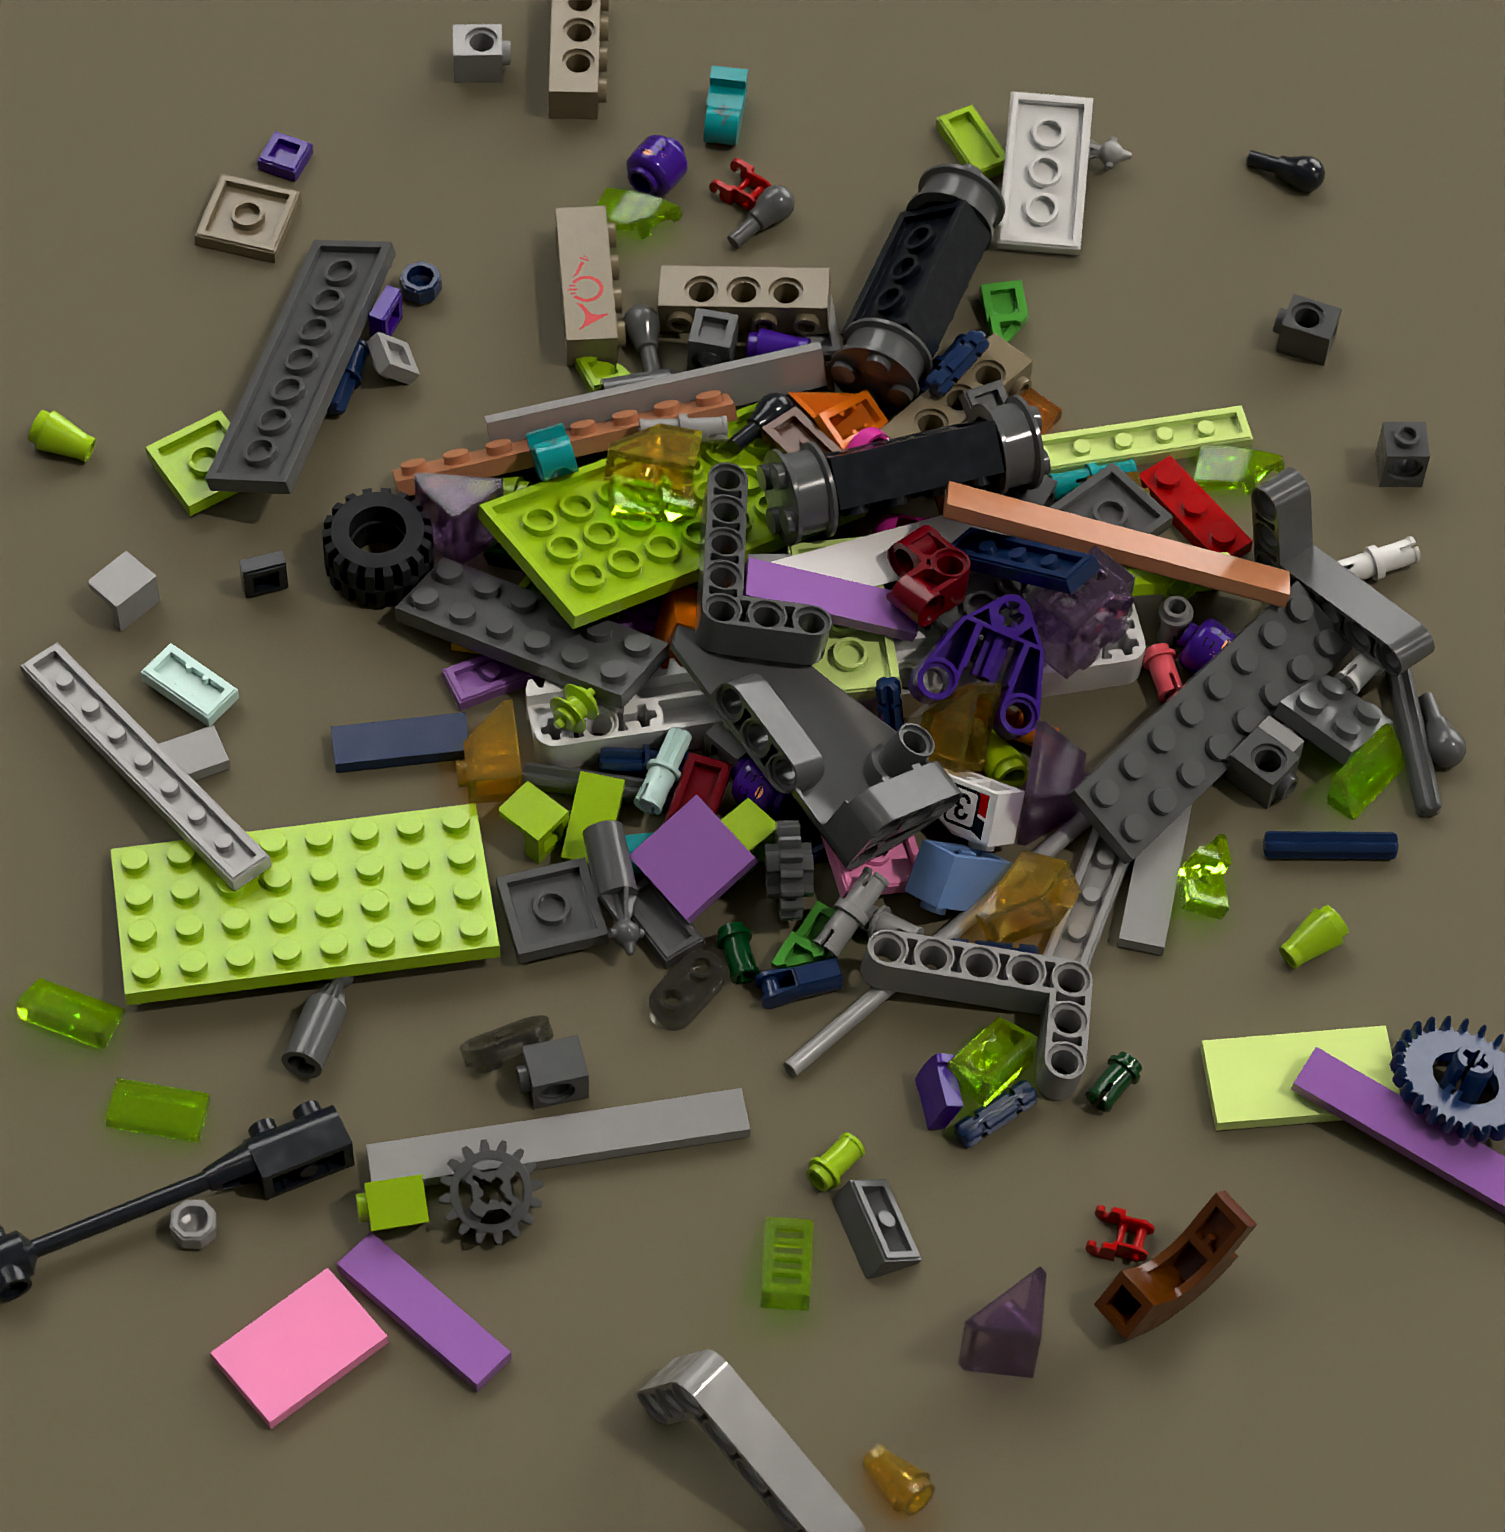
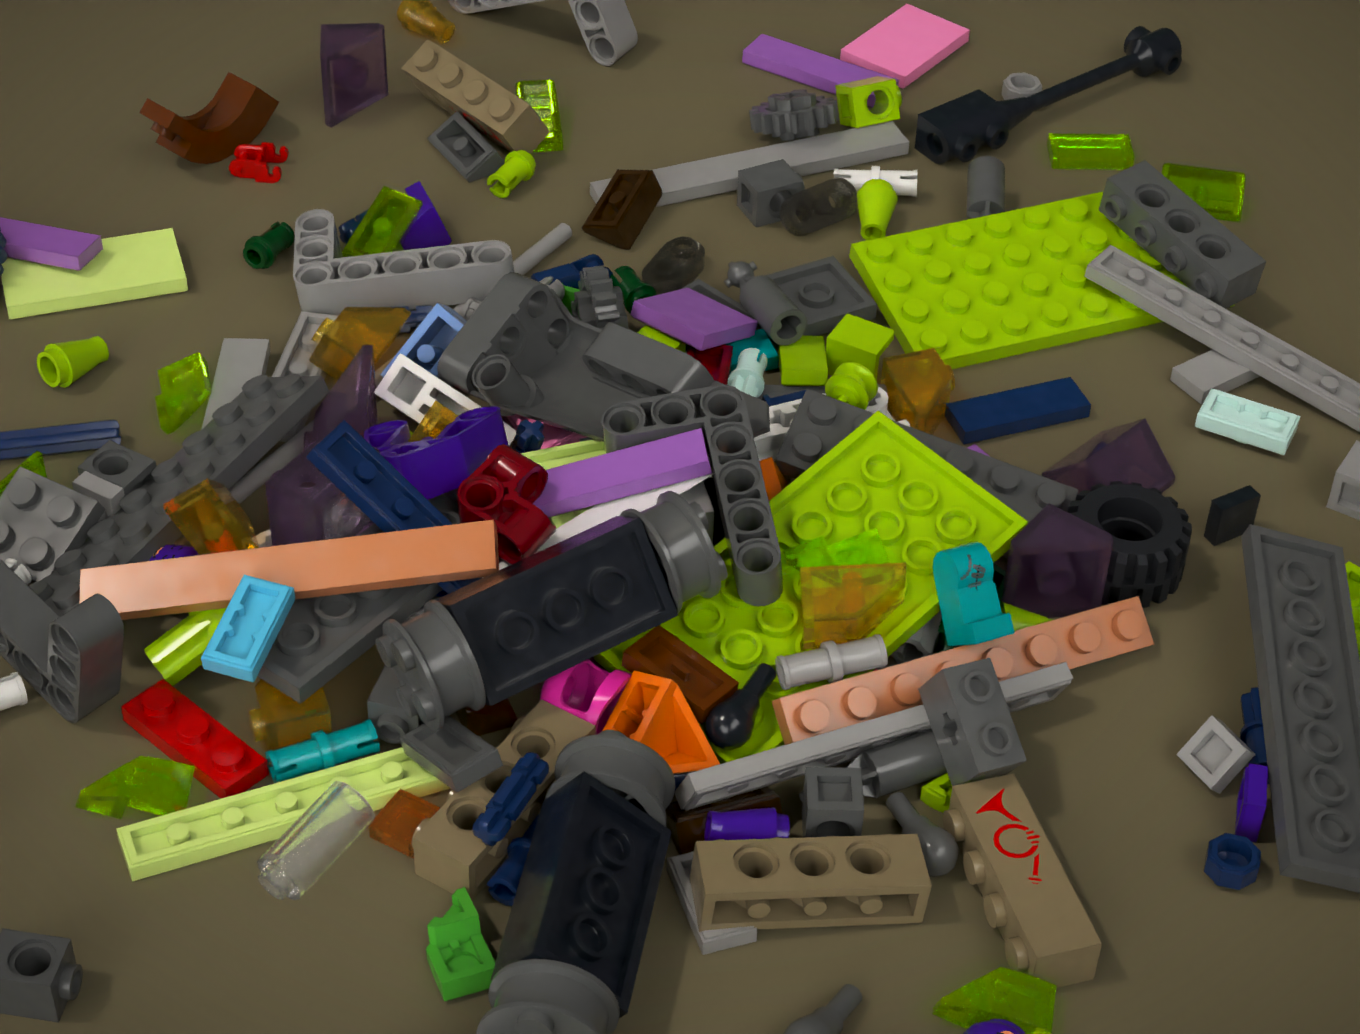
camera: 170 degrees right, 15 degrees down
(156, 876) = (1181, 235): none -> dark grey brick
(349, 655) = (1116, 454): none -> clear purple slope
(429, 1080) = (903, 181): none -> white pin
(444, 1035) = (875, 207): none -> lime cone
(590, 360) = (972, 722): none -> dark grey brick
(724, 1074) = (624, 207): none -> dark brown slope
(863, 1265) = (476, 97): none -> dark tan brick
(1103, 391) = (314, 842): none -> clear brick
(1151, 497) = (248, 628): none -> medium azure plate
(1179, 635) = (211, 519): none -> clear yellow slope

